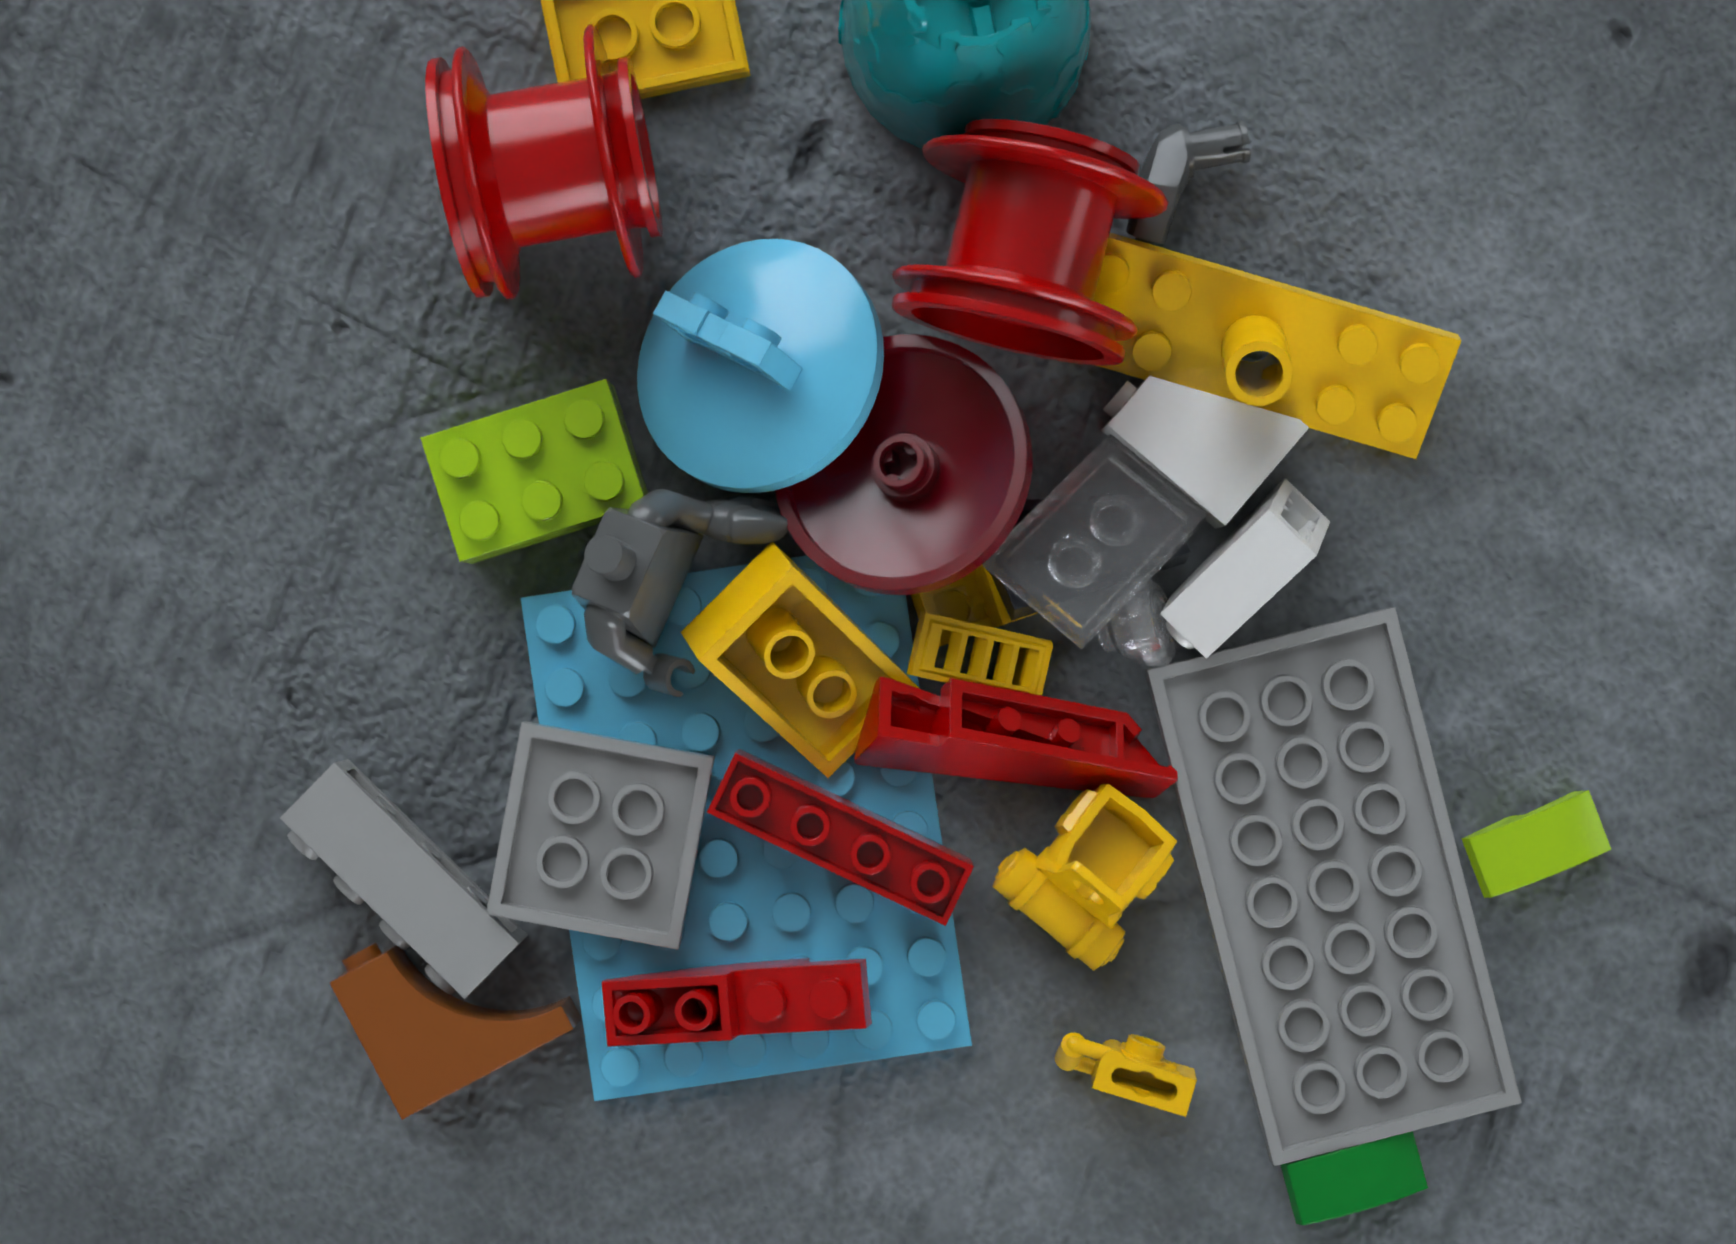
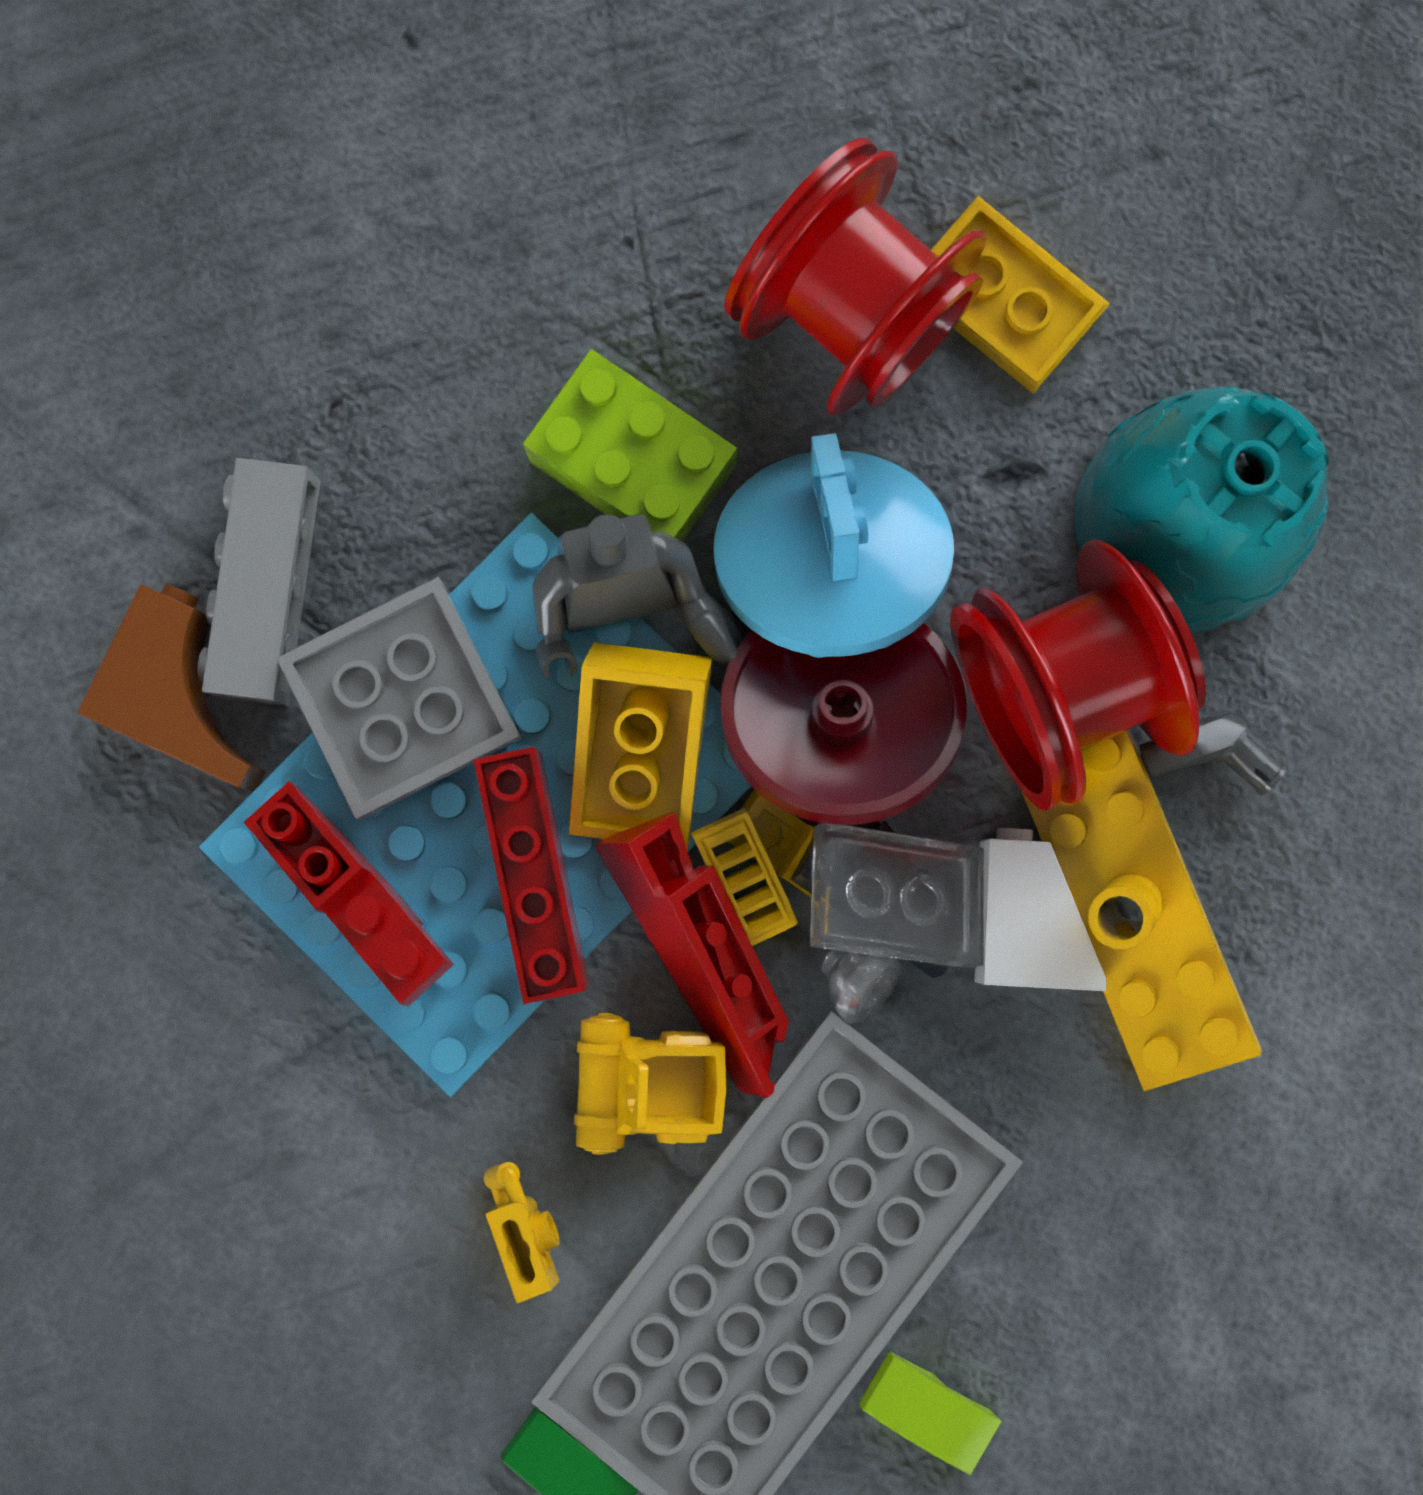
camera: 50 degrees right, 5 degrees down
(1246, 570) = (962, 1027): white slope -> none

